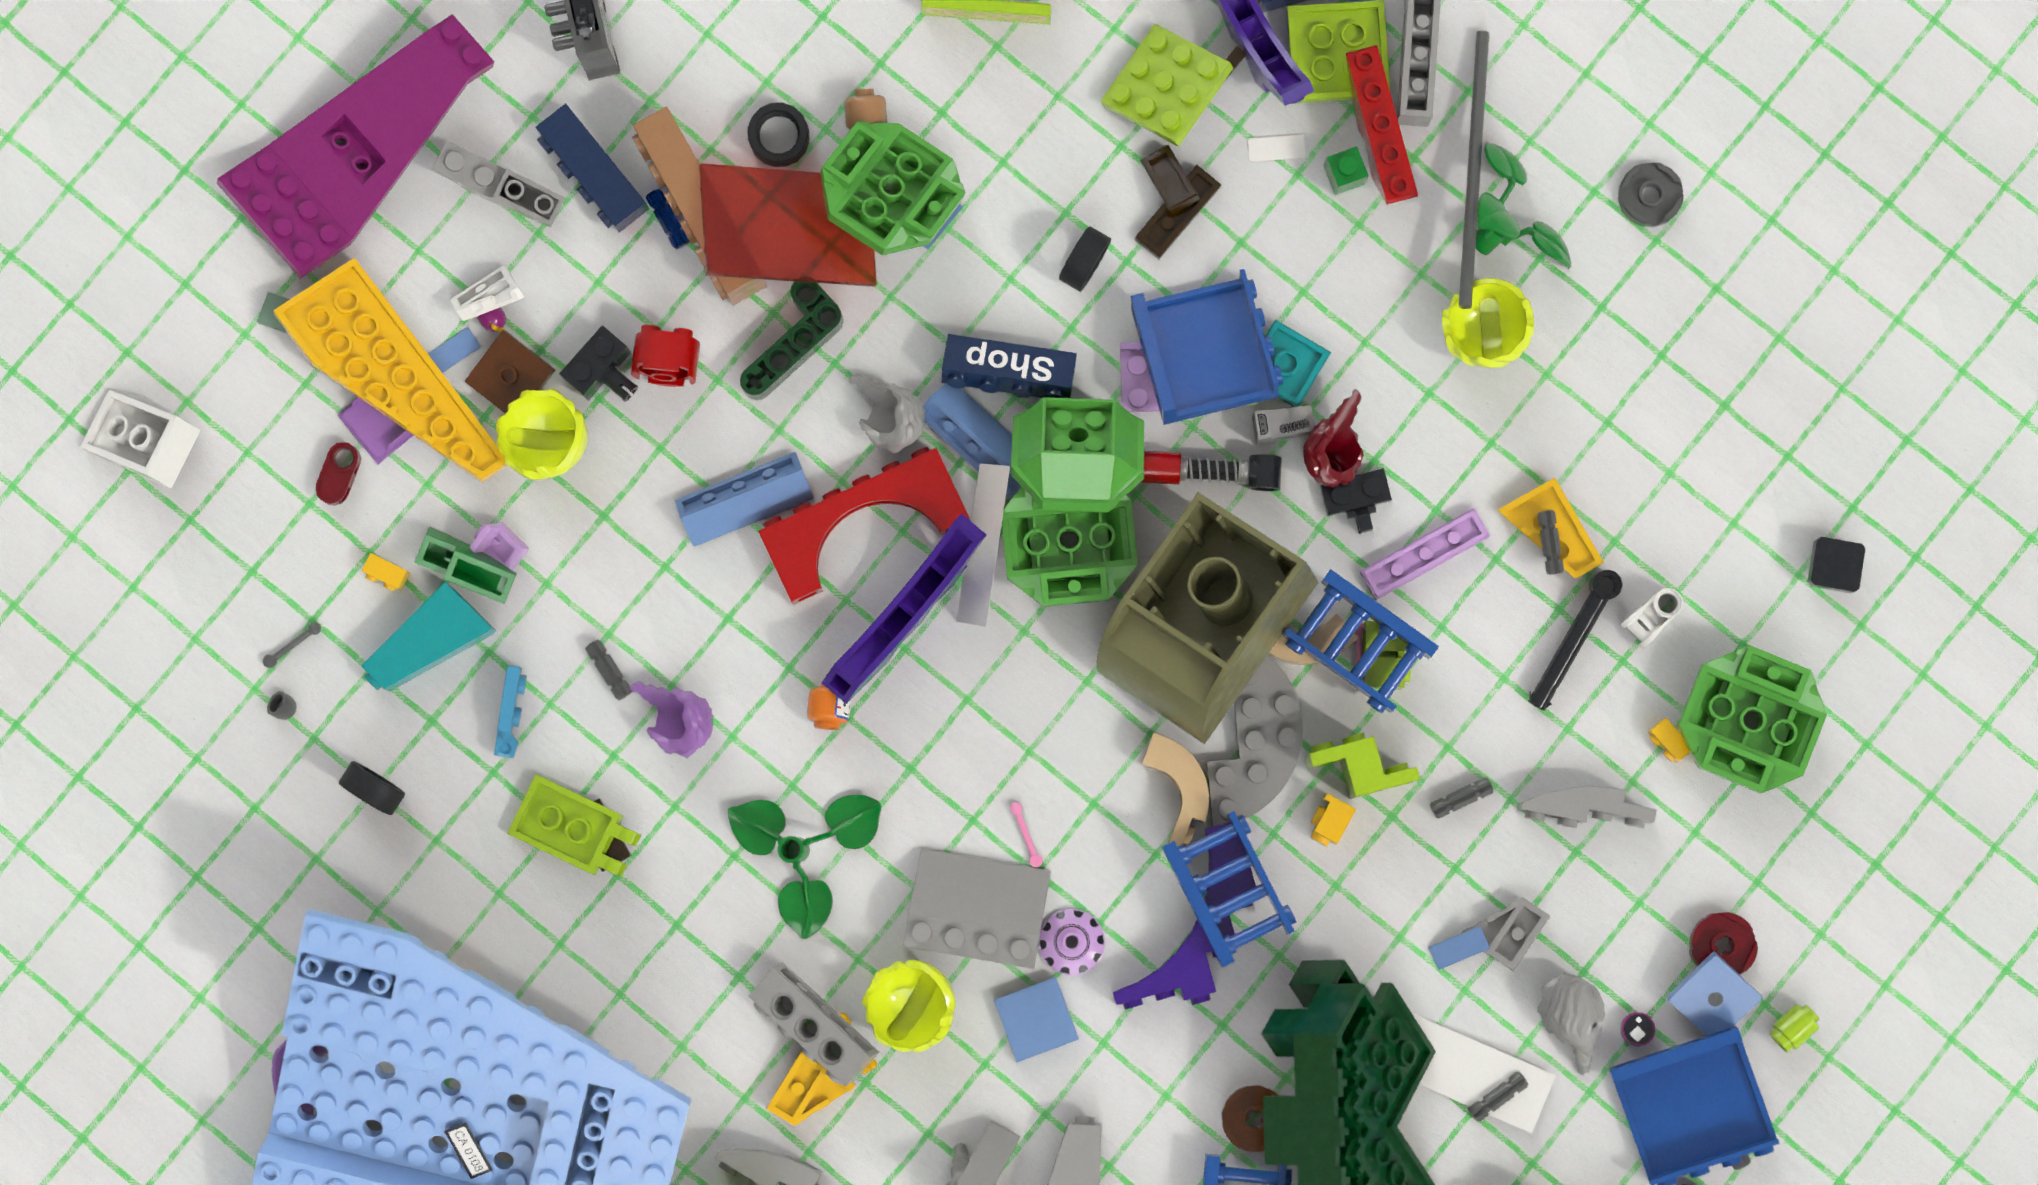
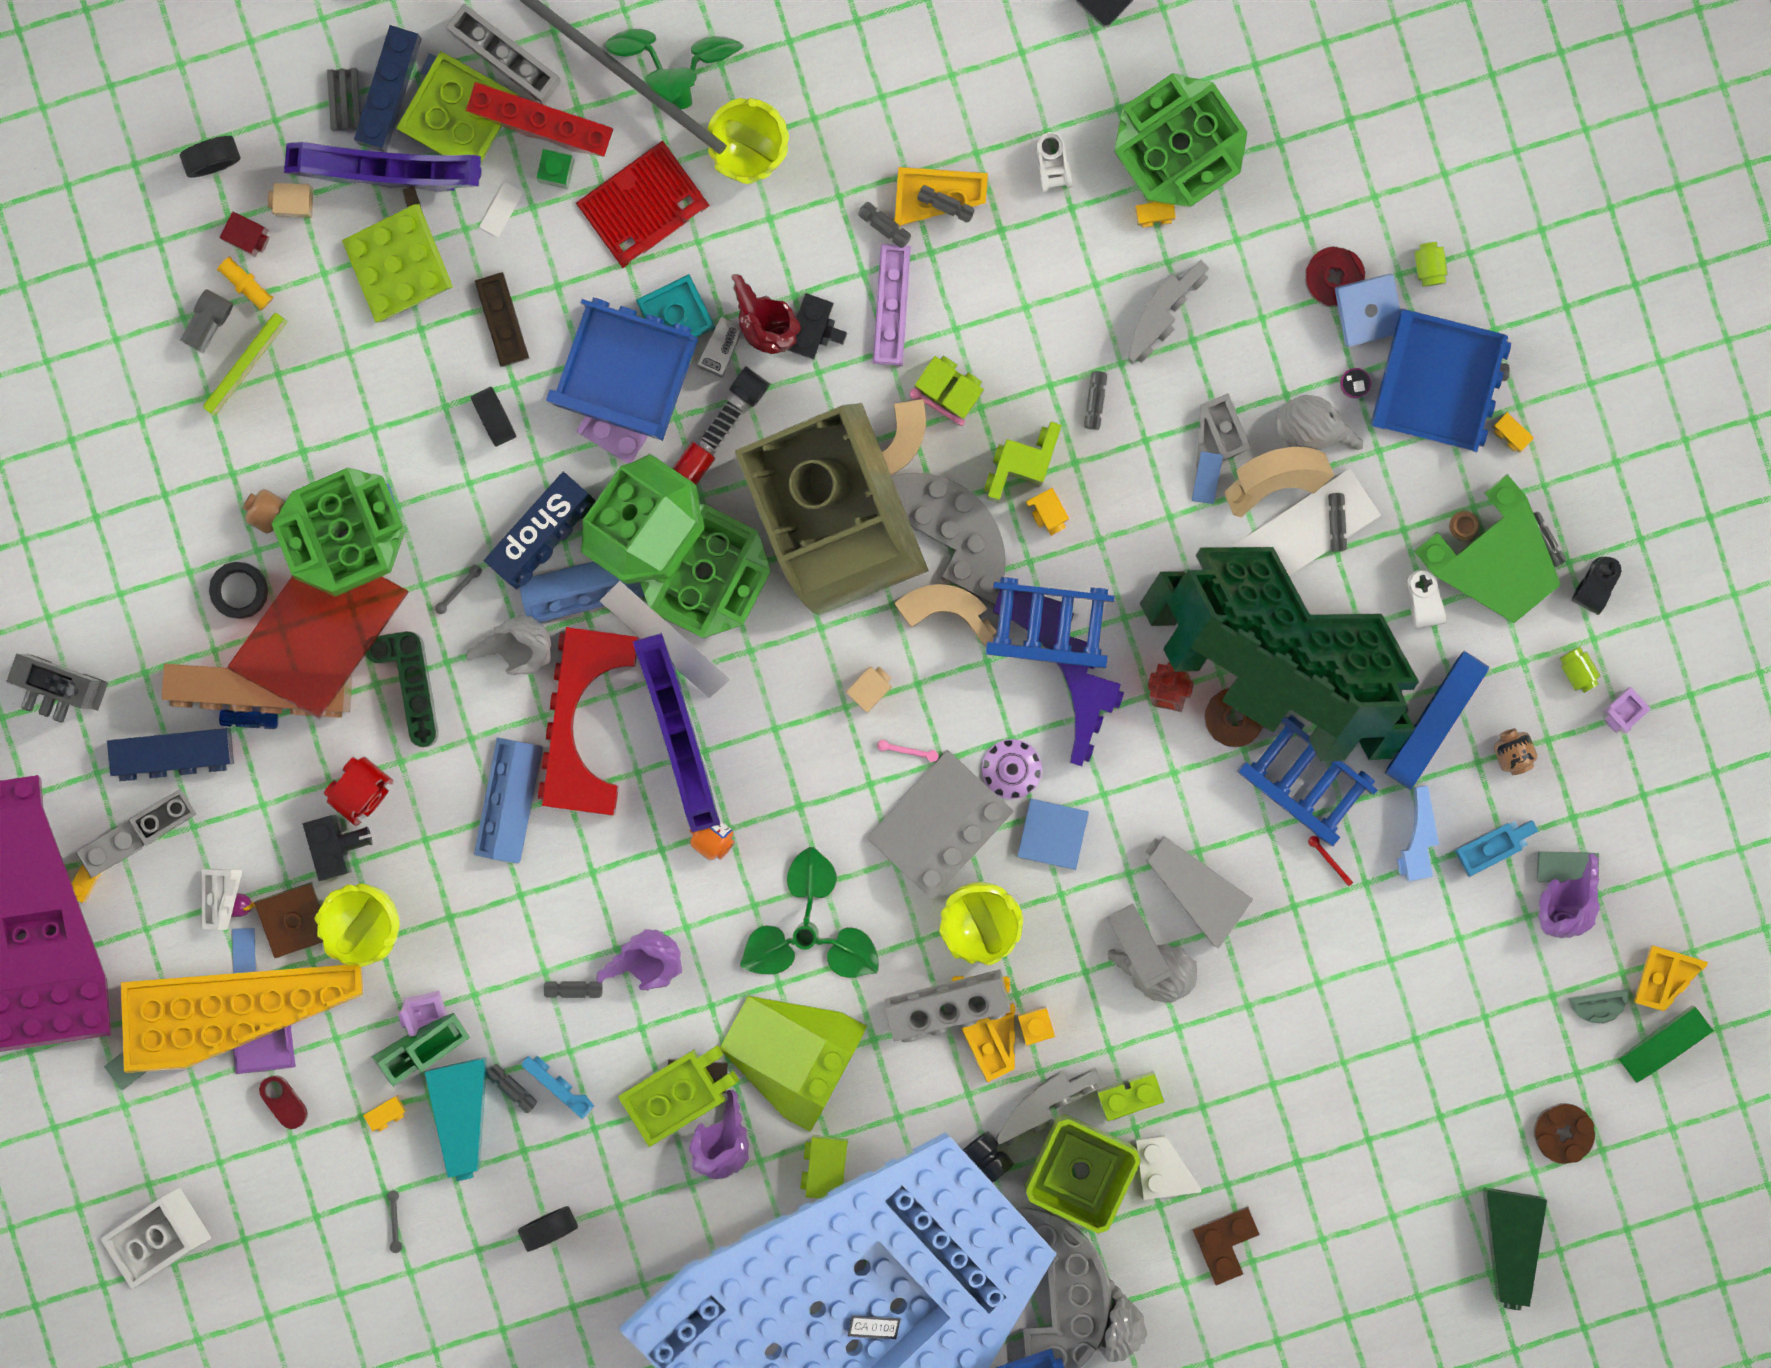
camera: 60 degrees left, 5 degrees up
(281, 706) = (437, 1259): dark grey hinge -> none
(421, 168) = (83, 884): none -> yellow piece
(481, 672) = (511, 1088): none -> dark grey axle
(549, 900) = (721, 1146): none -> medium lavender hair
(593, 1007) = (826, 1165): none -> lime piece
(677, 909) = (792, 1054): none -> lime wedge
(694, 1152) = (985, 1156): none -> black wheel
(847, 1119) = (1036, 1025): none -> yellow brick
(932, 334) = (474, 572): none -> dark grey hinge
(1060, 762) = (870, 688): none -> tan brick
(1170, 179) = (473, 309): dark brown tile -> none
(1242, 1039) = (1169, 688): none -> clear red brick
(1363, 609) = (932, 372): blue fence -> none
(1366, 270) = (642, 203): none -> red window
(1493, 499) = (884, 224): none -> dark grey axle
(1509, 1007) = (1278, 470): none -> tan arch
(1574, 640) = (1032, 235): black piece -> none

